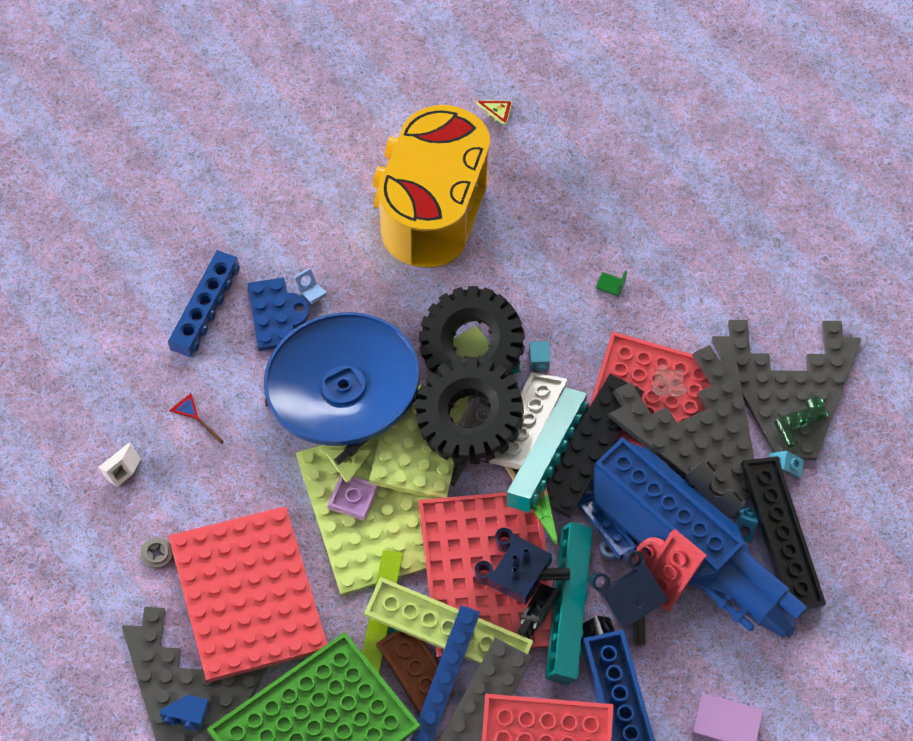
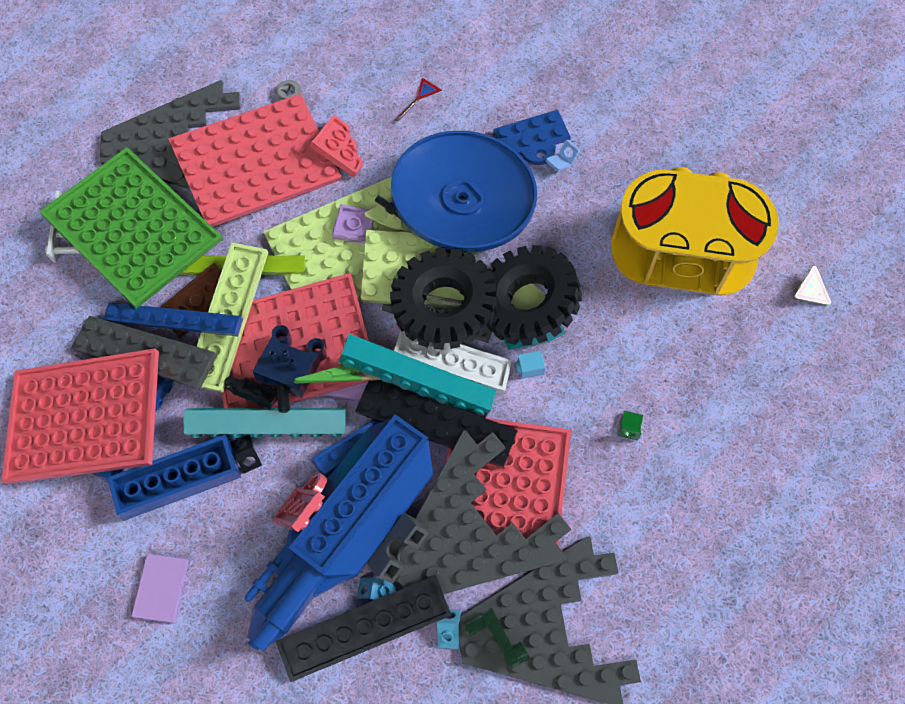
camera: 85 degrees right, 5 degrees up
(120, 465) = (360, 49): white slope -> none
(187, 711) = (142, 134): blue slope -> none
(203, 294) = (528, 80): blue brick -> none
(249, 503) = (338, 146): none -> coral plate
(631, 595) = (273, 475): dark blue piece -> none
(670, 380) = (523, 494): clear plate -> none

